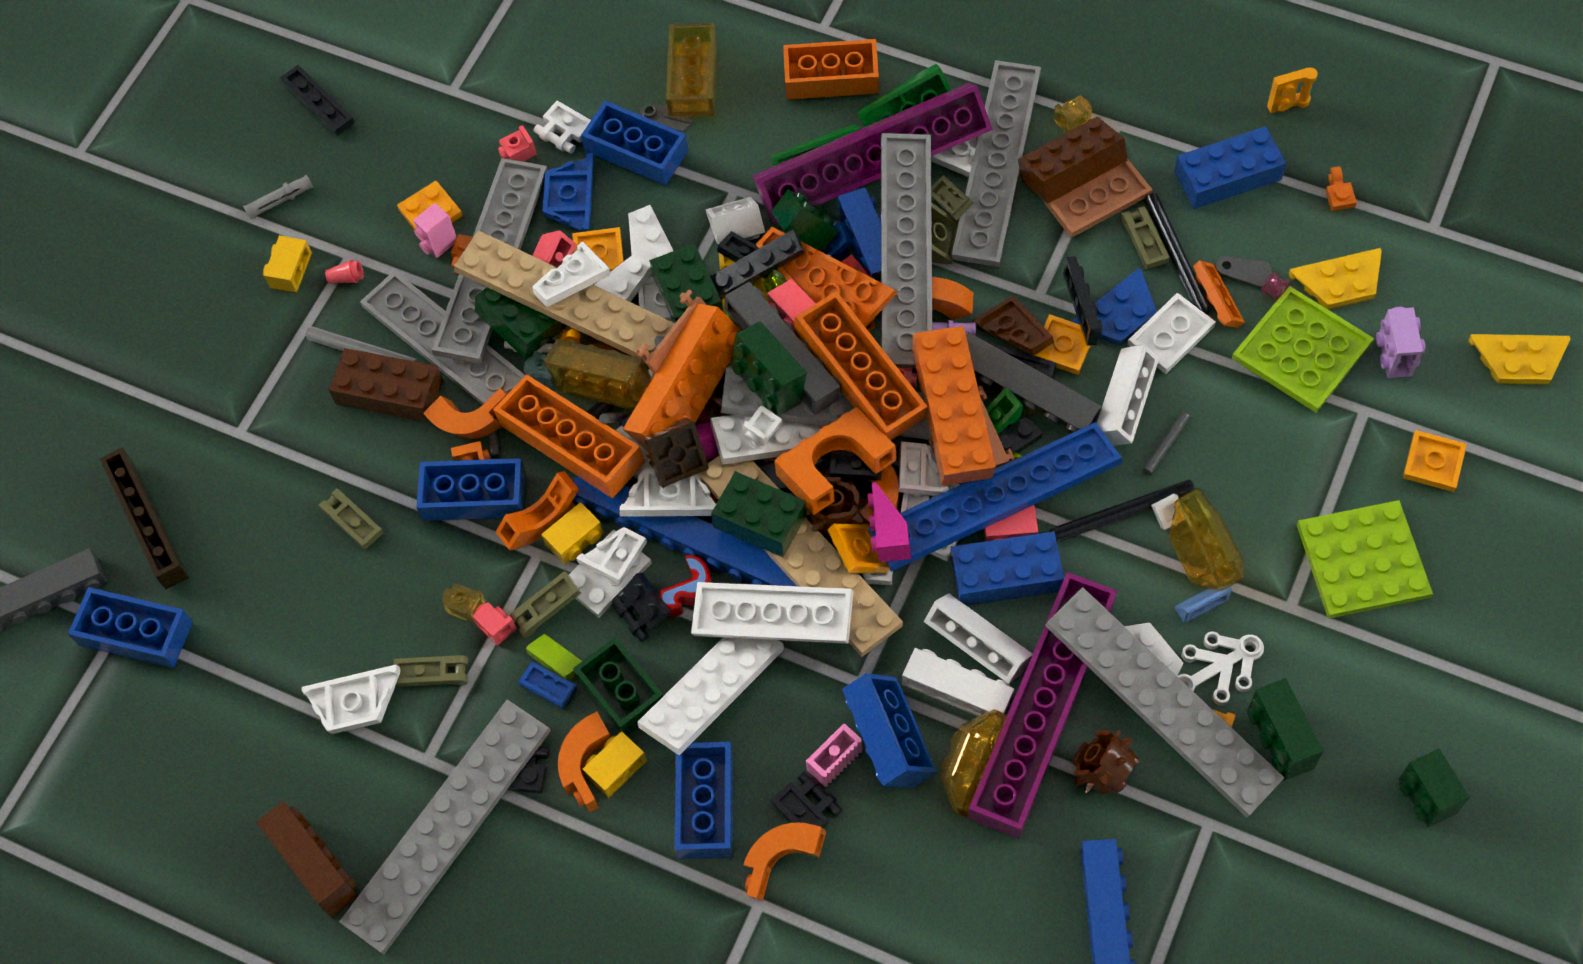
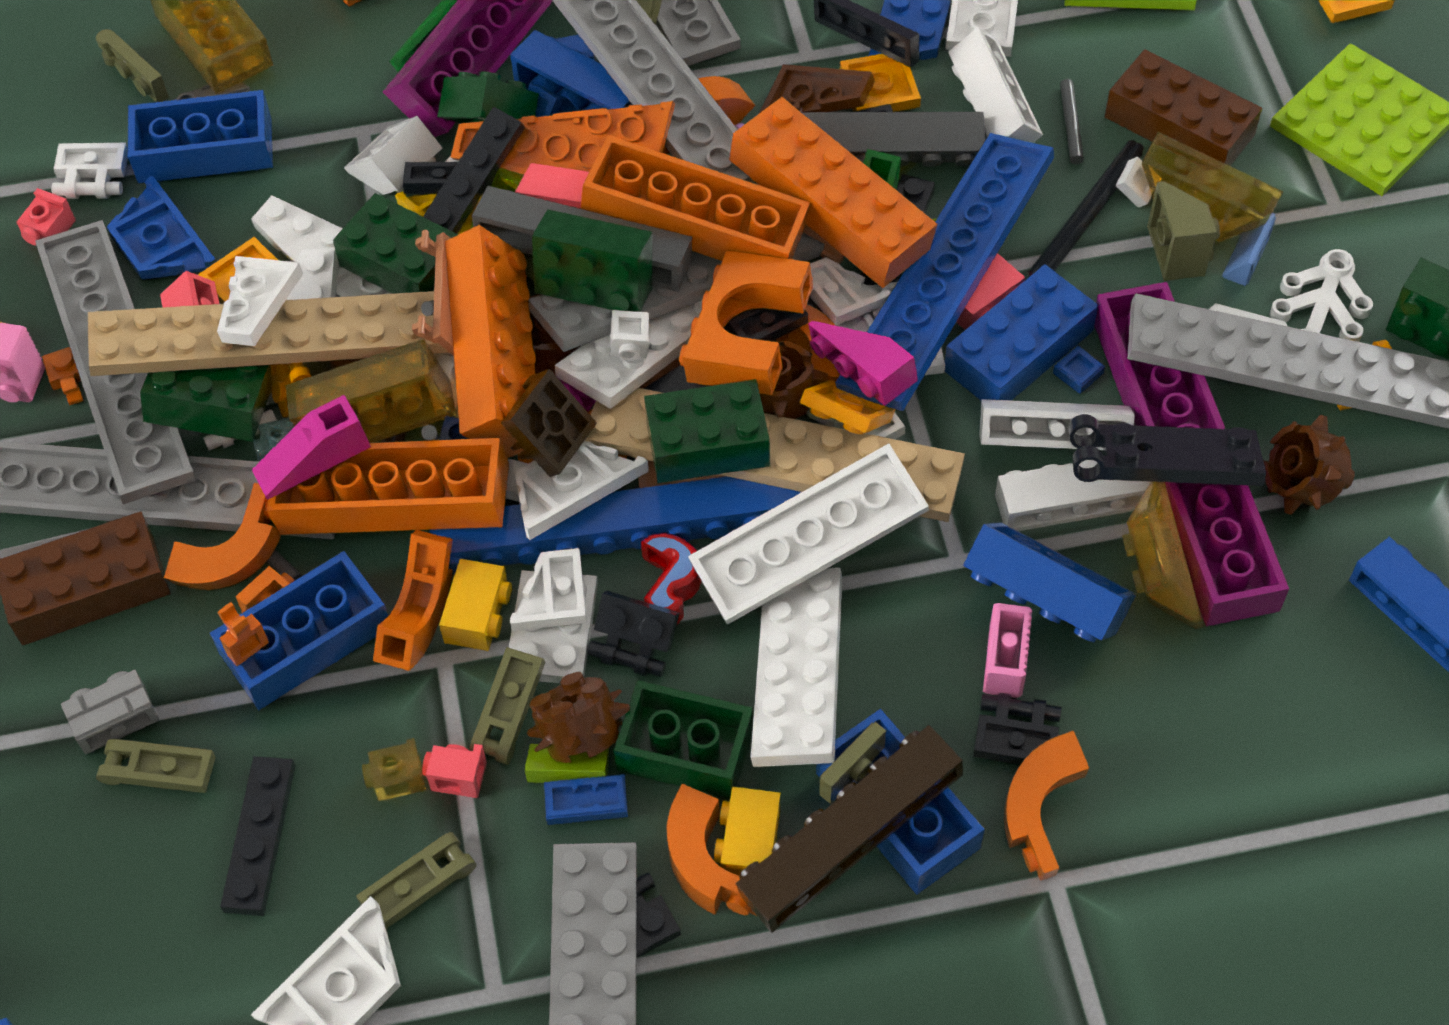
camera: 40 degrees left, 5 degrees down
(348, 472) = (109, 710): none -> light grey brick
(373, 591) = (258, 836): none -> black plate
(427, 476) = (243, 634): none -> orange plate
(537, 388) = (314, 445): none -> dark pink slope
(570, 636) = (576, 717): none -> reddish brown brick
(632, 70) = (131, 65): none -> olive plate
(655, 797) = (849, 827): none -> dark brown brick
(685, 762) = (853, 762): none -> olive plate
(1020, 707) = (1167, 454): none -> black hinge
(1029, 611) = (1078, 369): none -> blue tile
(1159, 567) = (1181, 233): none -> olive slope
(1239, 482) = (1183, 106): none -> reddish brown brick

